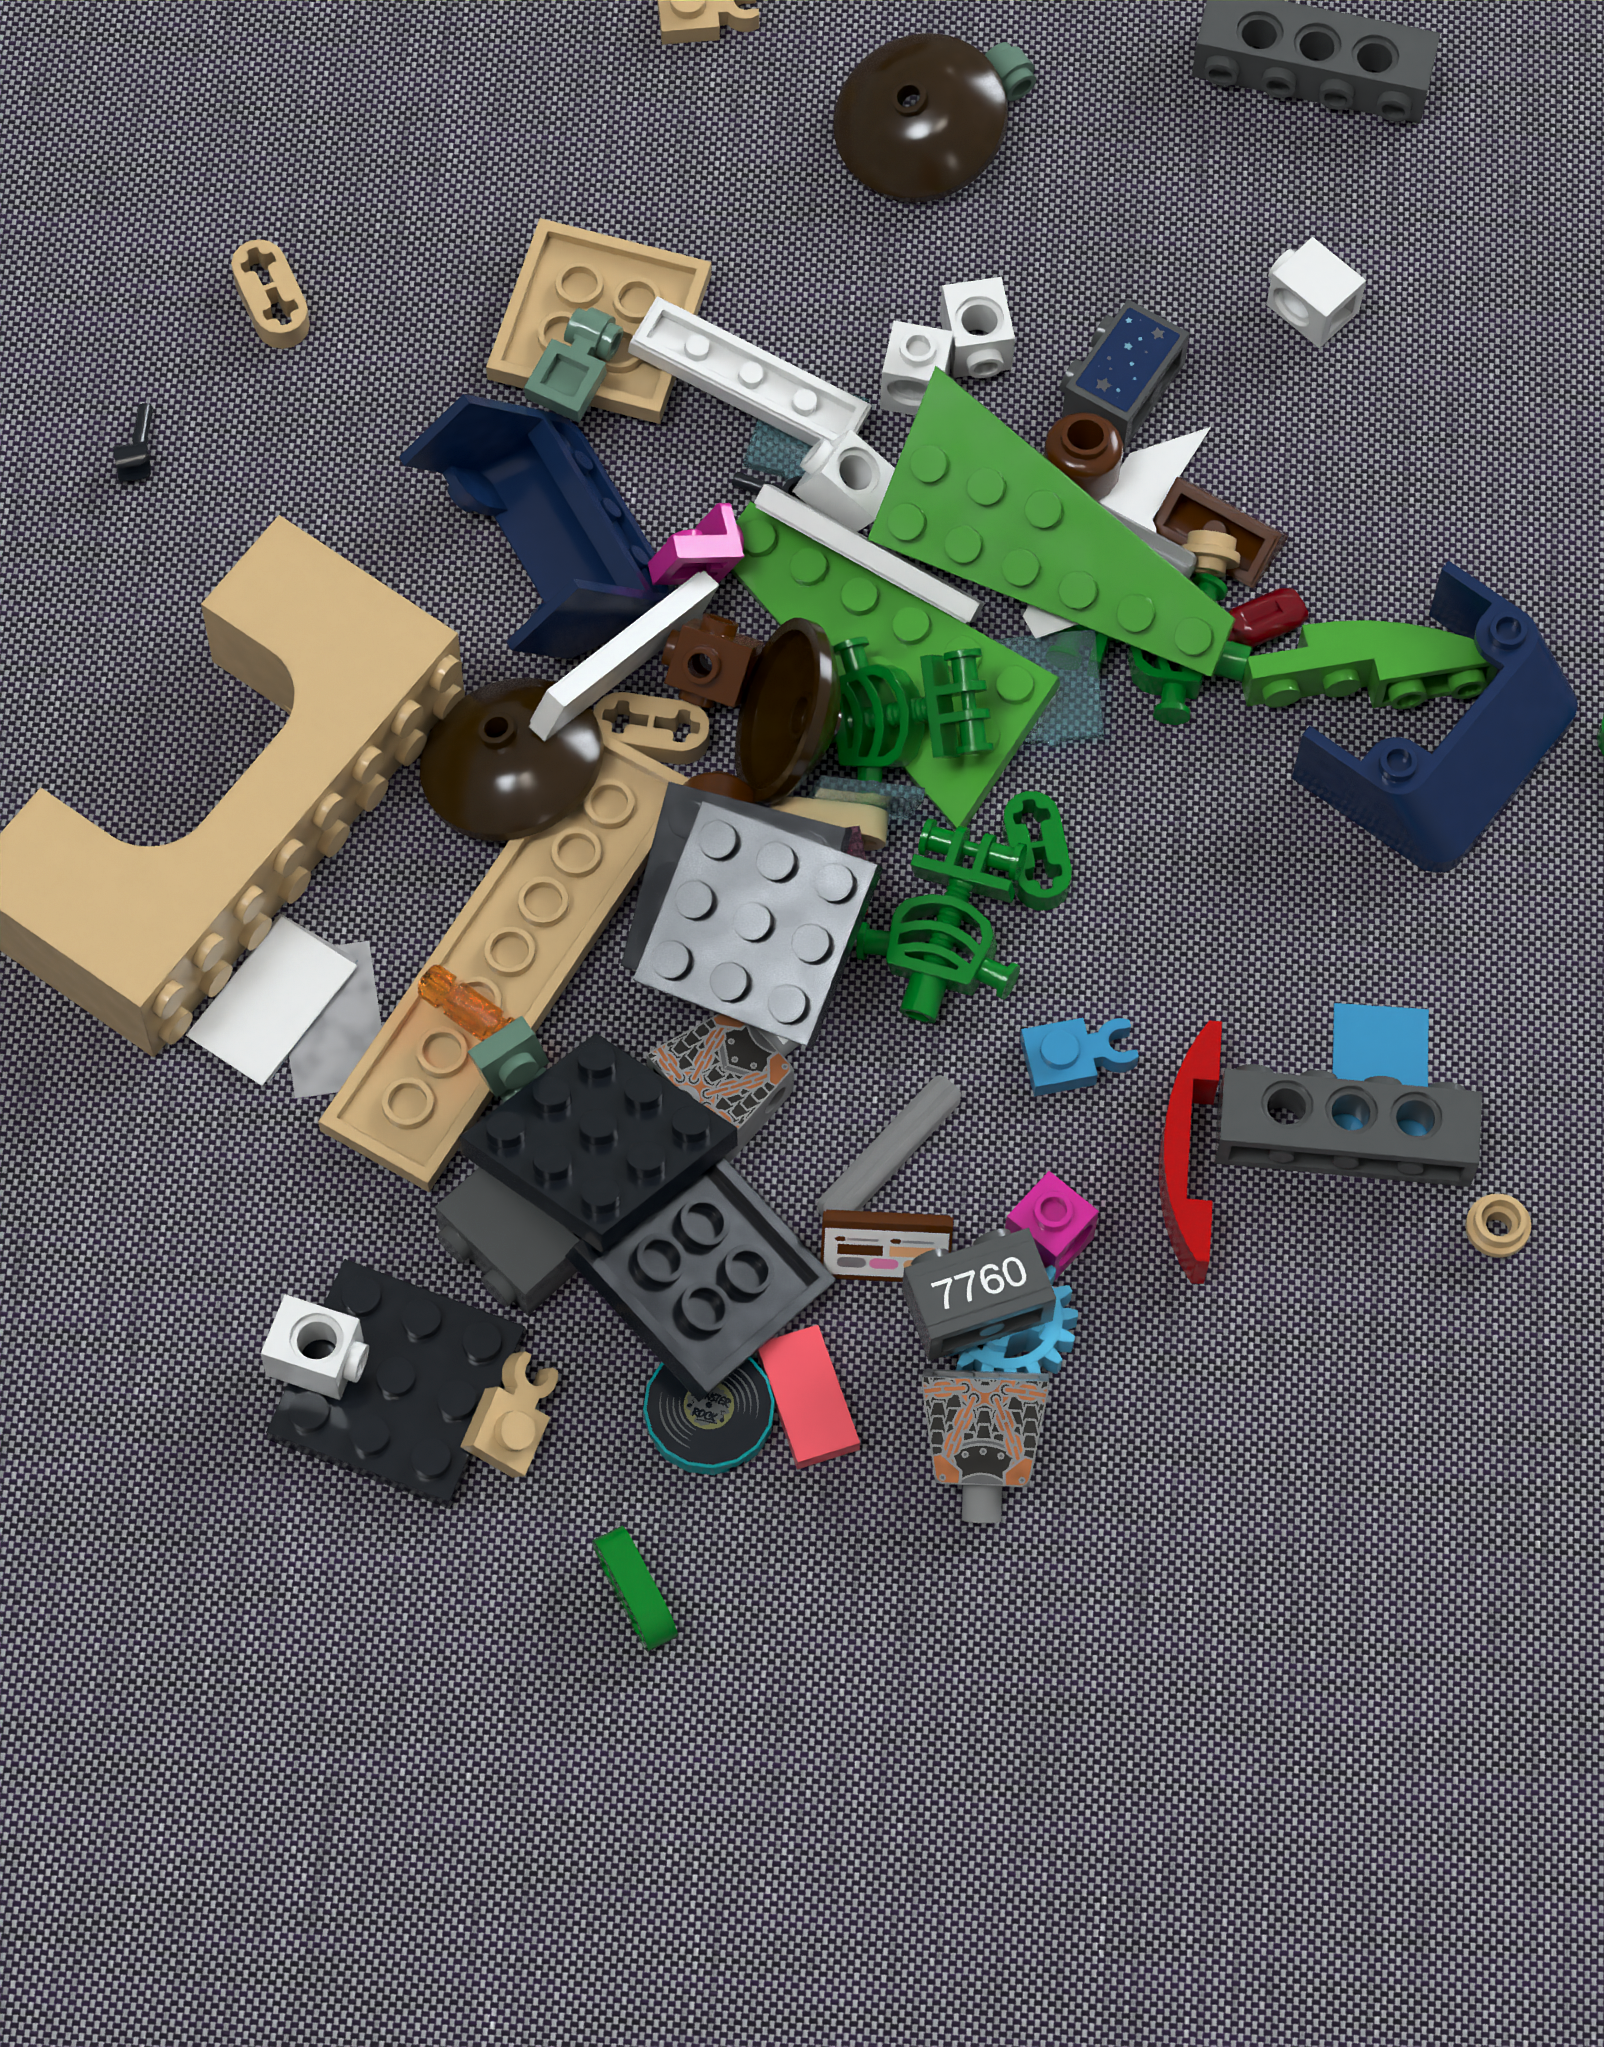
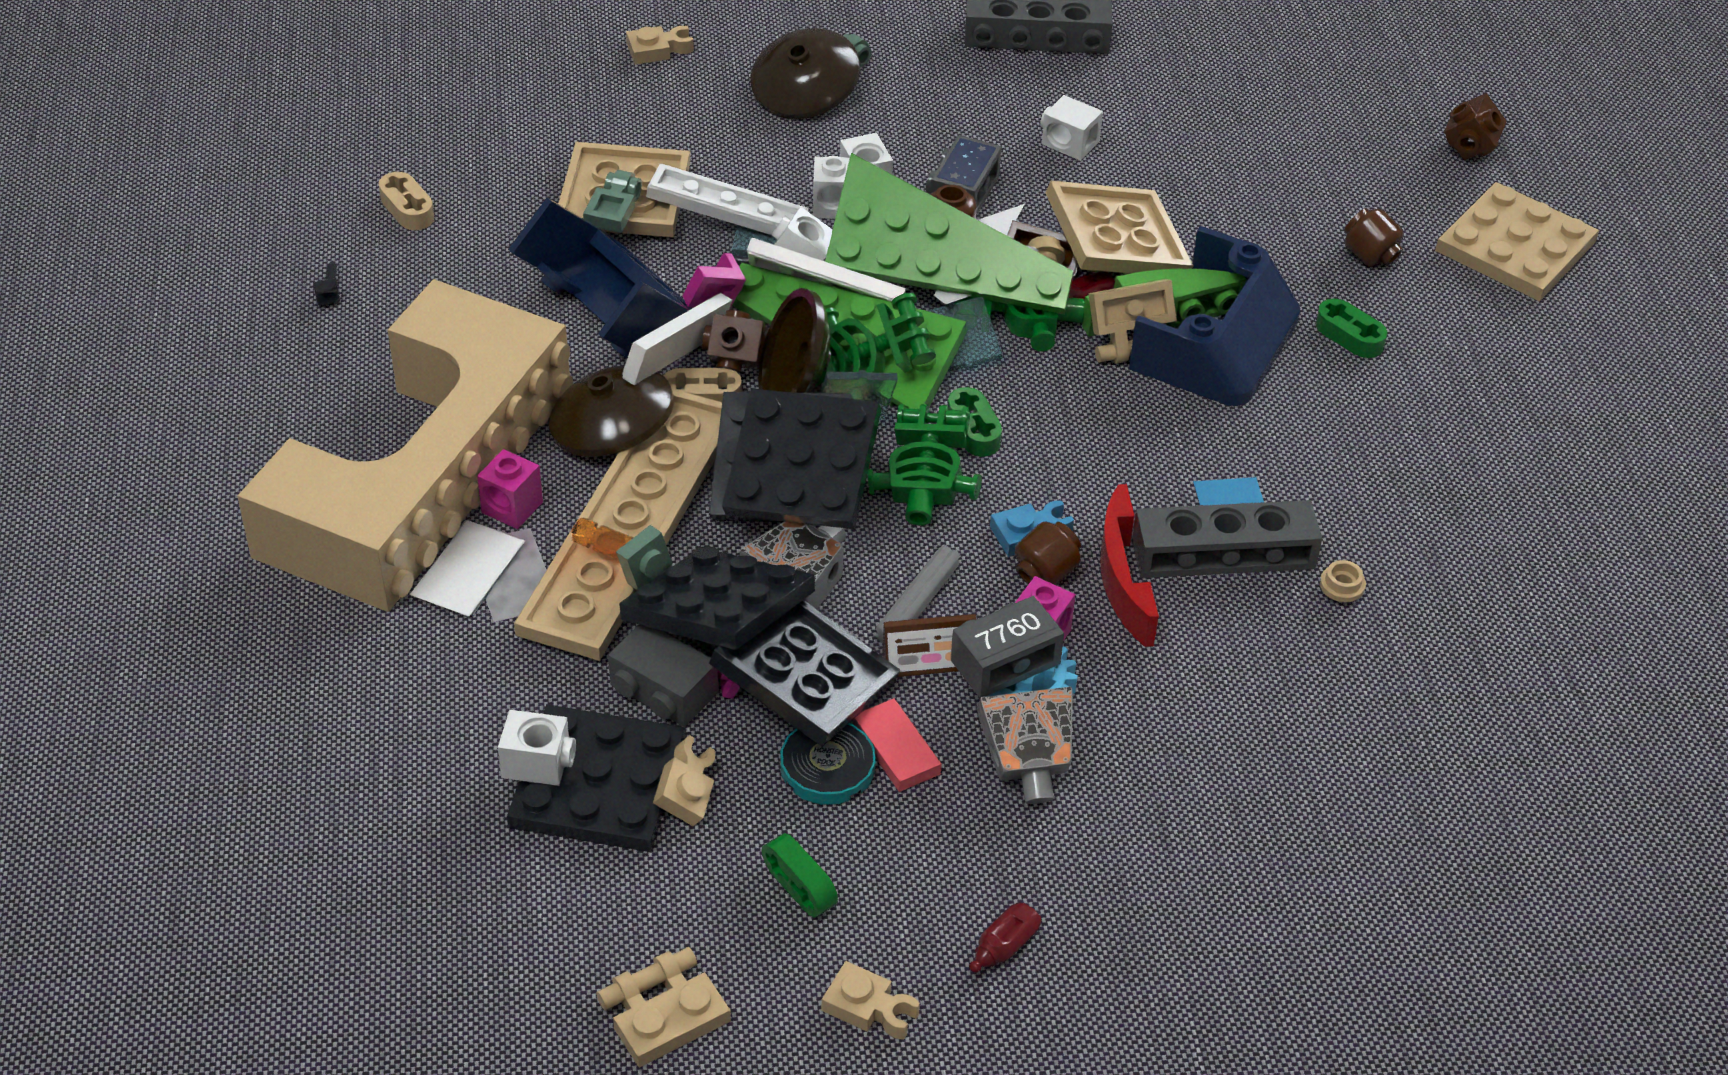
camera: 10 degrees left, 20 degrees down
(346, 883) = (510, 489): none -> dark pink brick
(432, 1769) = (670, 1018): none -> tan plate
(683, 1781) = (863, 997): none -> tan plate
(888, 1722) = (1006, 936): none -> dark red piece
(1084, 1116) = (1048, 553): none -> reddish brown head
(1312, 695) = (1118, 308): none -> tan plate
(1334, 522) = (1116, 228): none -> tan plate

